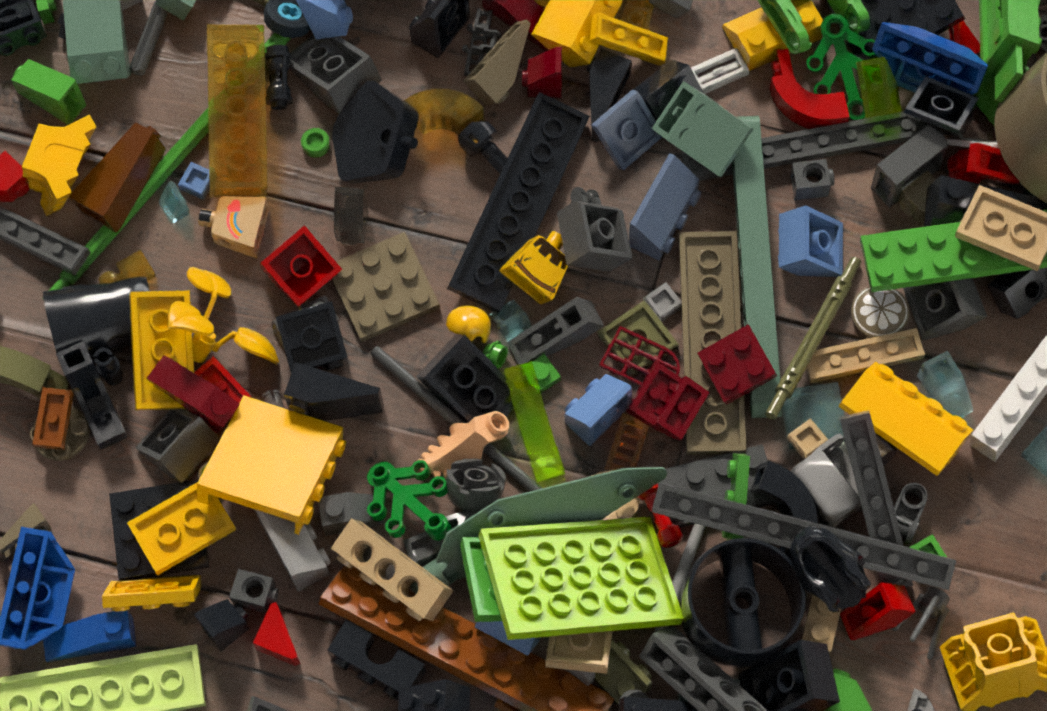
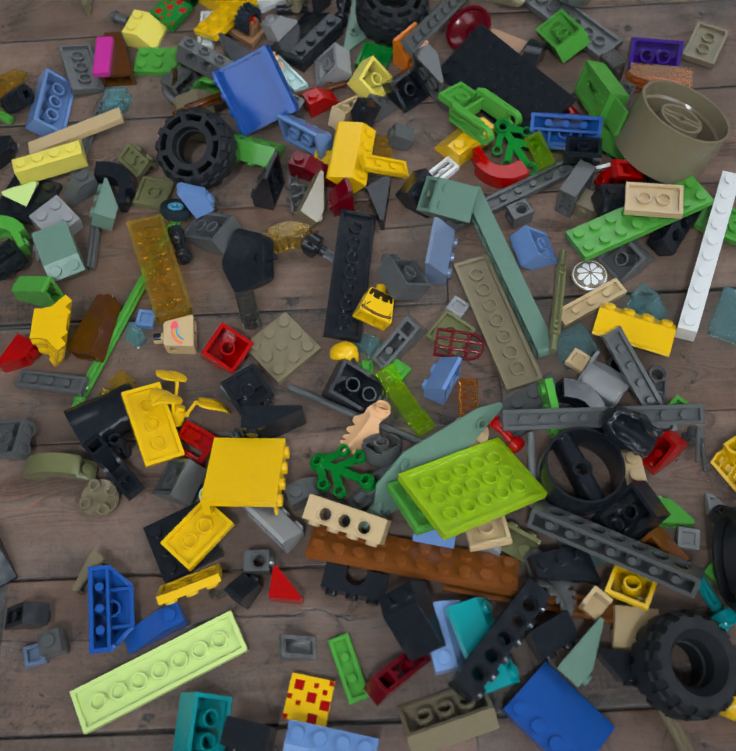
camera: 15 degrees left, 5 degrees down
(53, 418) = (91, 489): dark orange plate -> none
(193, 392) = (181, 444): dark red slope -> none
(315, 142) = (213, 276): bright green tile -> none
(627, 129) = (401, 215): sand blue plate -> none
(667, 401) = (484, 363): dark red slope -> none
(737, 364) = (519, 328): dark red plate -> none

